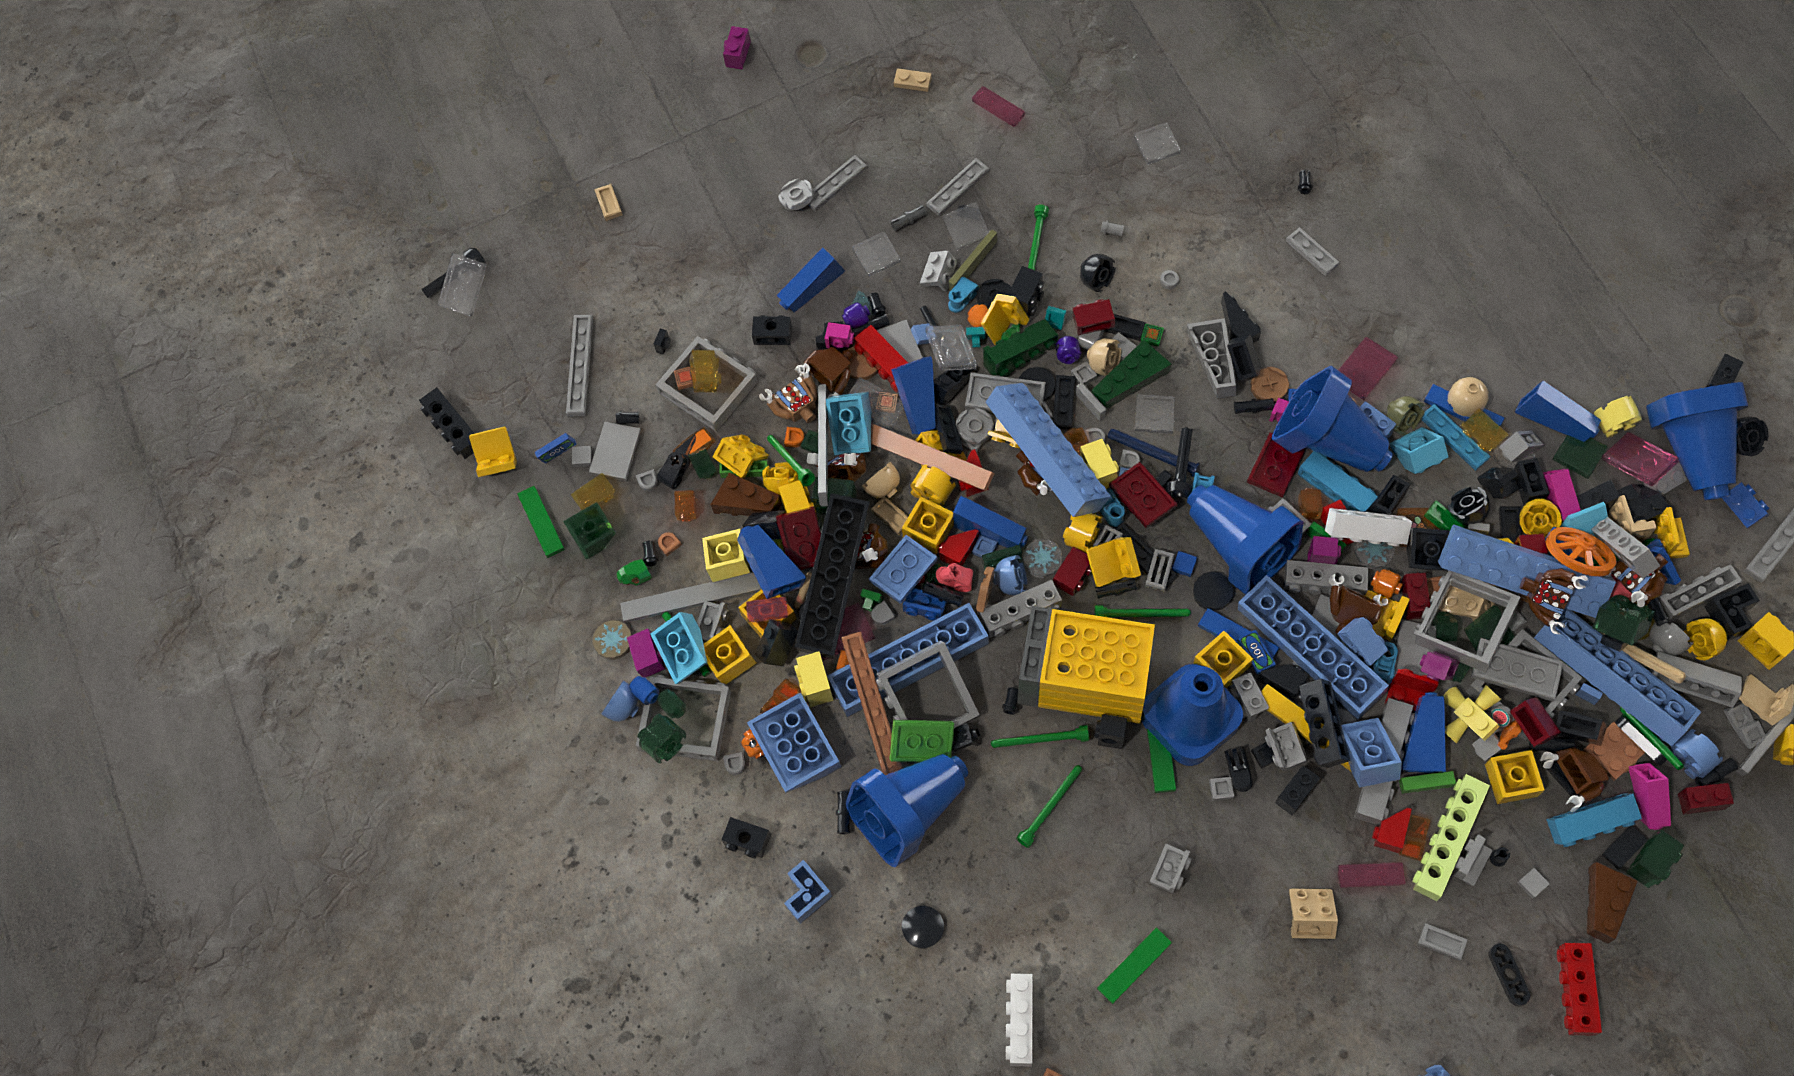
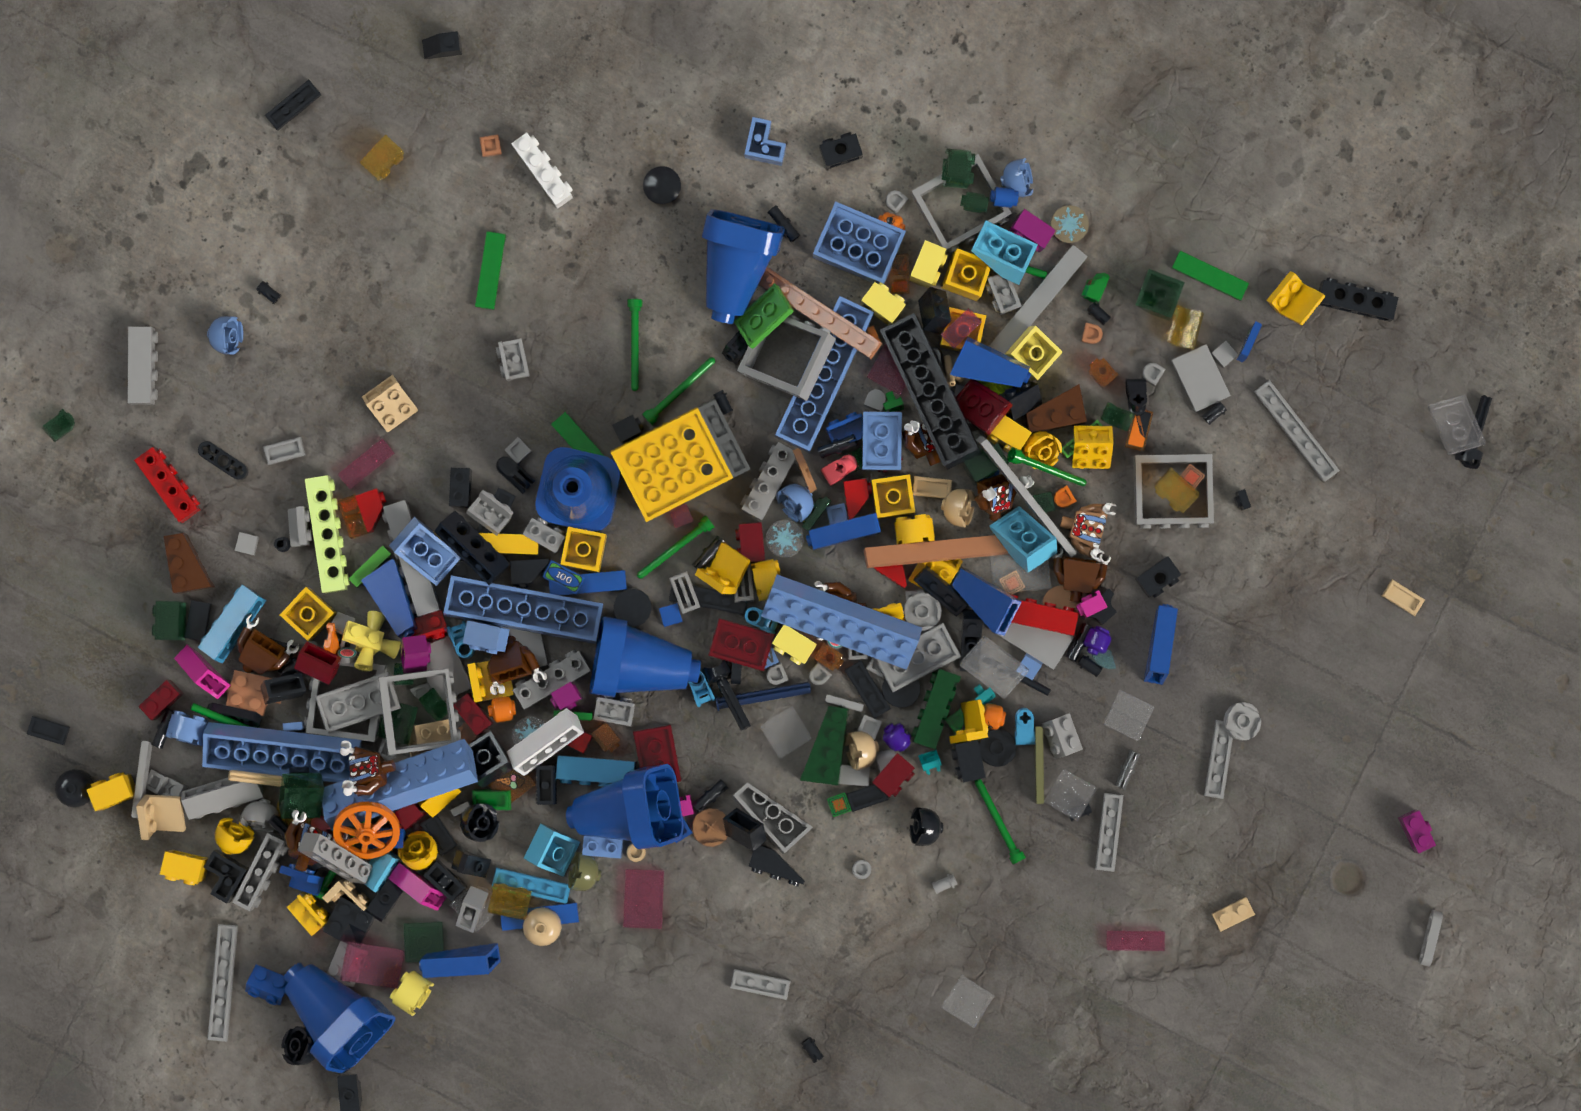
camera: 135 degrees right, 20 degrees up
(751, 684) = (927, 265): none -> light yellow brick

